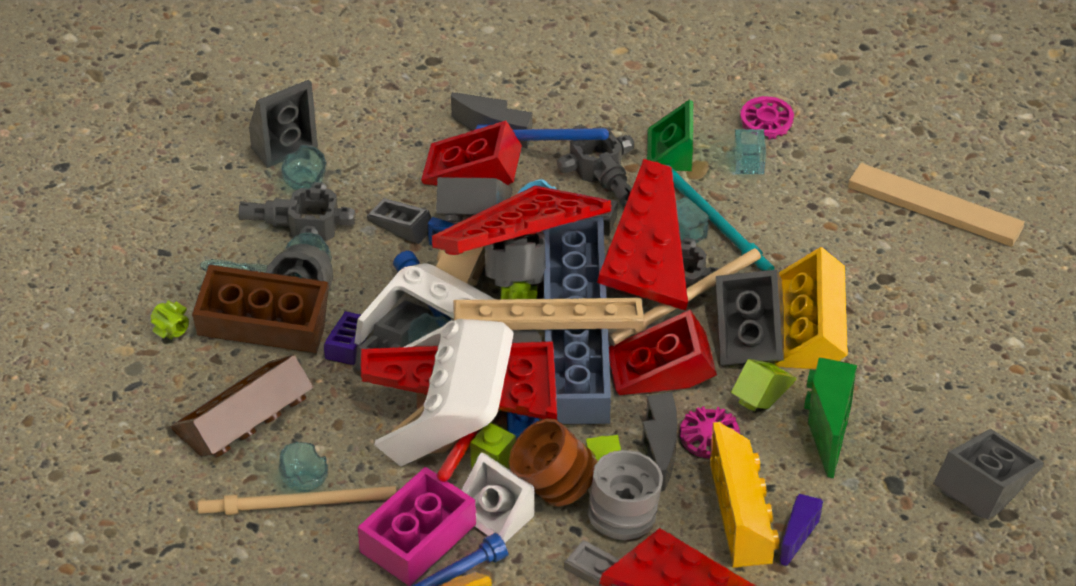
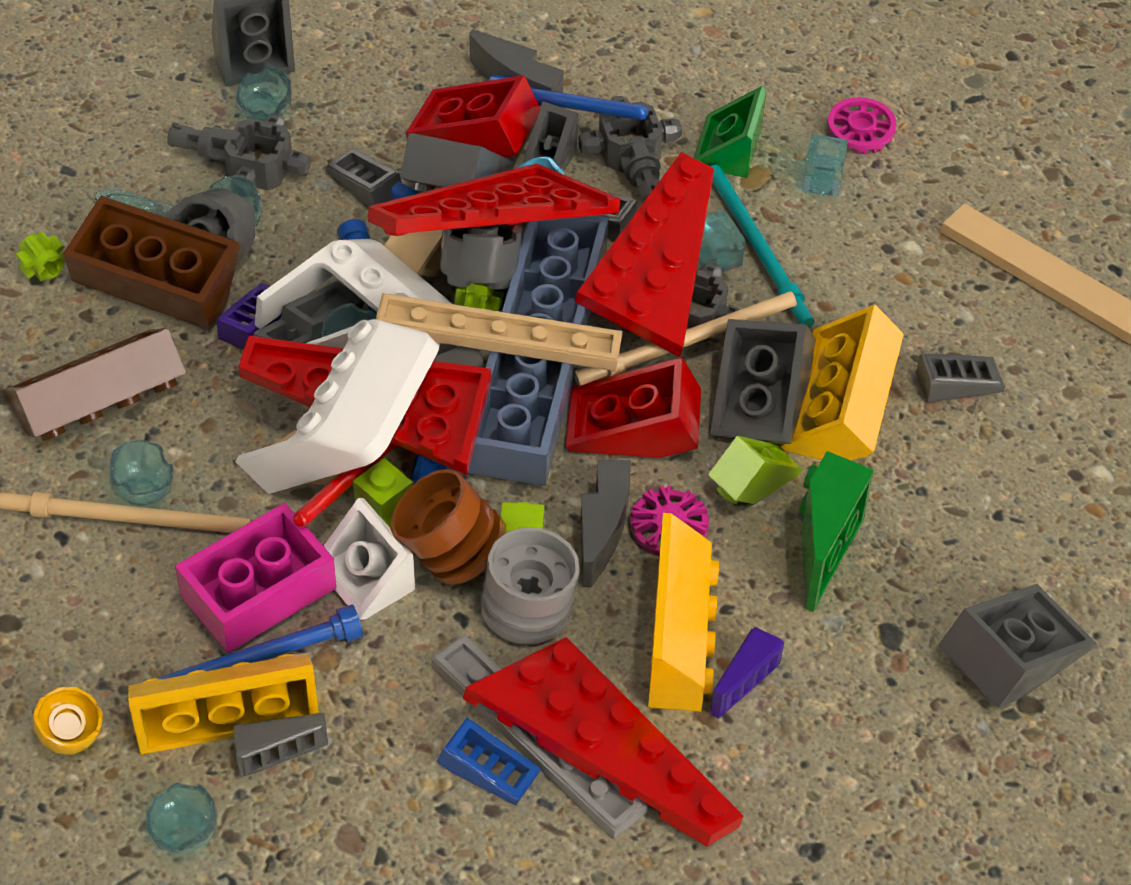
camera: 10 degrees right, 5 degrees up
(538, 161) = (554, 135): none -> dark grey slope
(879, 298) = (937, 379): none -> dark grey slope

